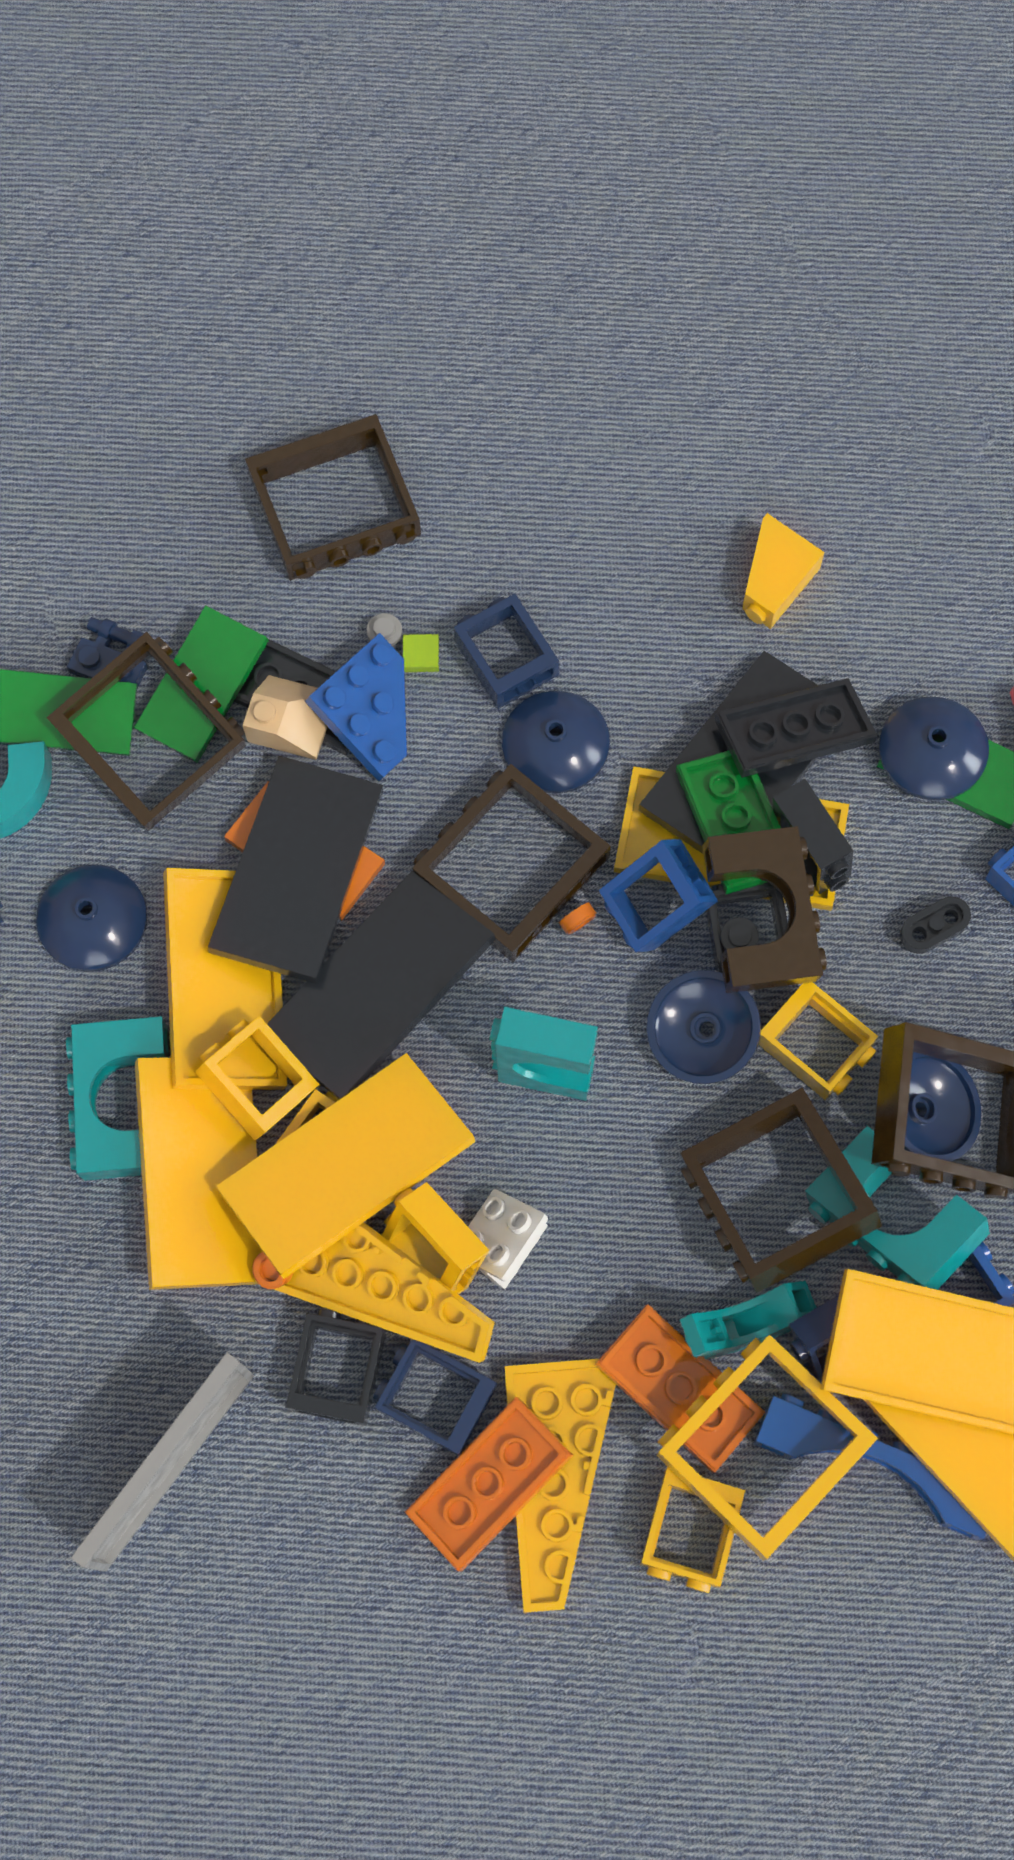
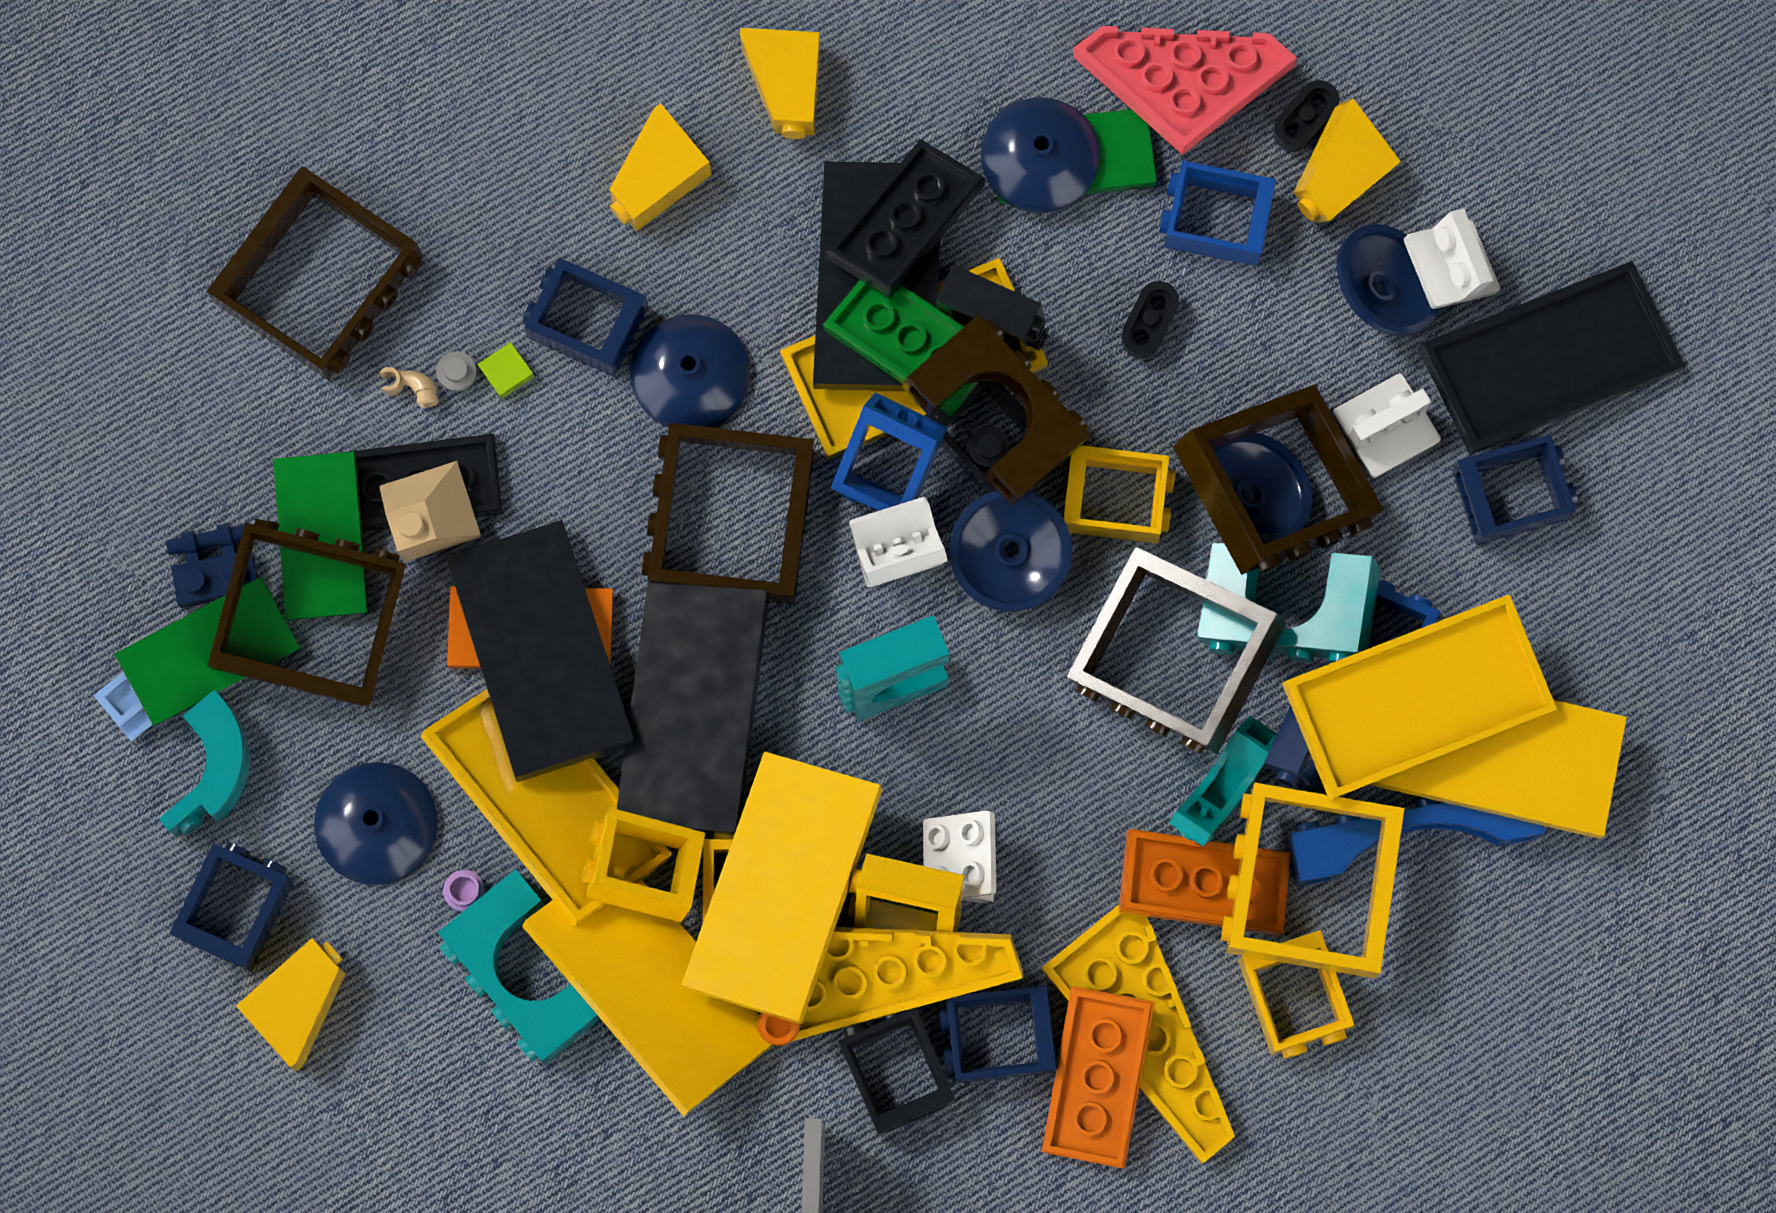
camera: 35 degrees left, 5 degrees up
(117, 1006) = (463, 889): none -> lavender plate
(352, 623) = (421, 384): none -> tan arm
(367, 706) = (494, 455): blue plate -> none
(578, 918) = (828, 525): orange tile -> none
(619, 963) = (897, 542): none -> white bracket
(632, 579) = (657, 171): none -> yellow slope

